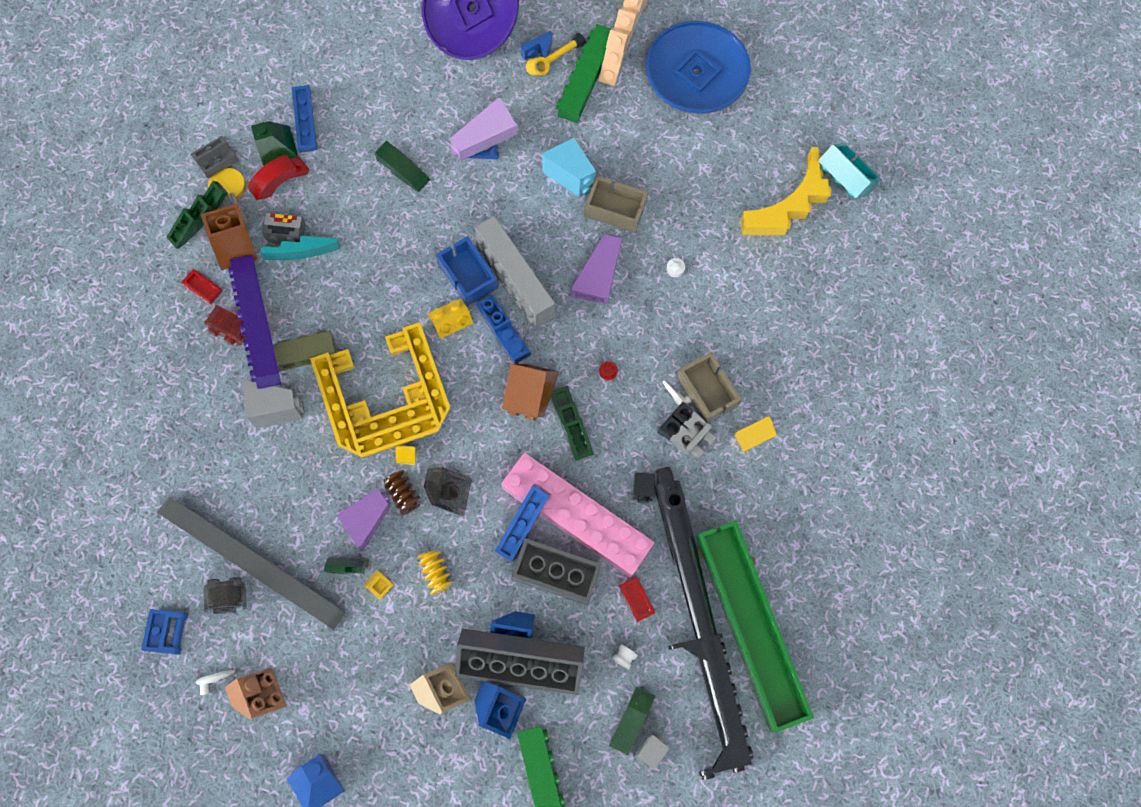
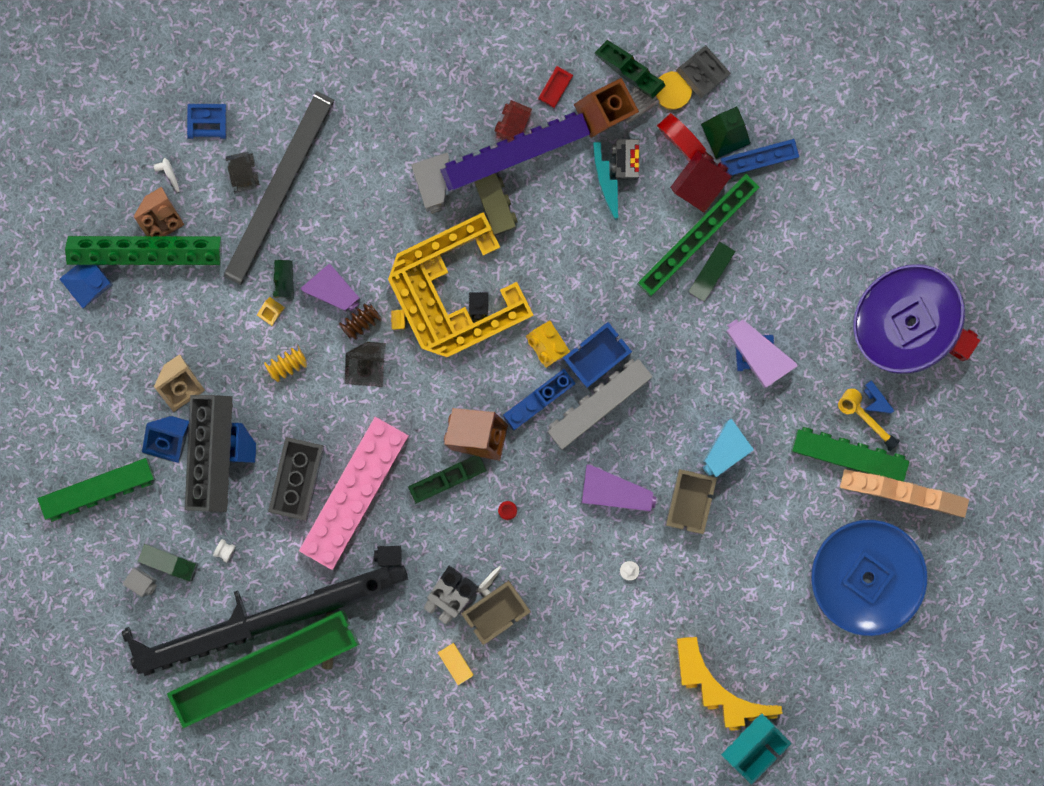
camera: 85 degrees right, 15 degrees up
(290, 715) = (143, 250): none -> green brick
(315, 162) = (701, 181): none -> dark red brick
(367, 173) = (698, 235): none -> green brick
(402, 377) = (478, 304): none -> black bracket
(523, 522) = (338, 441): blue plate -> none
(636, 599) = (279, 558): red plate -> none

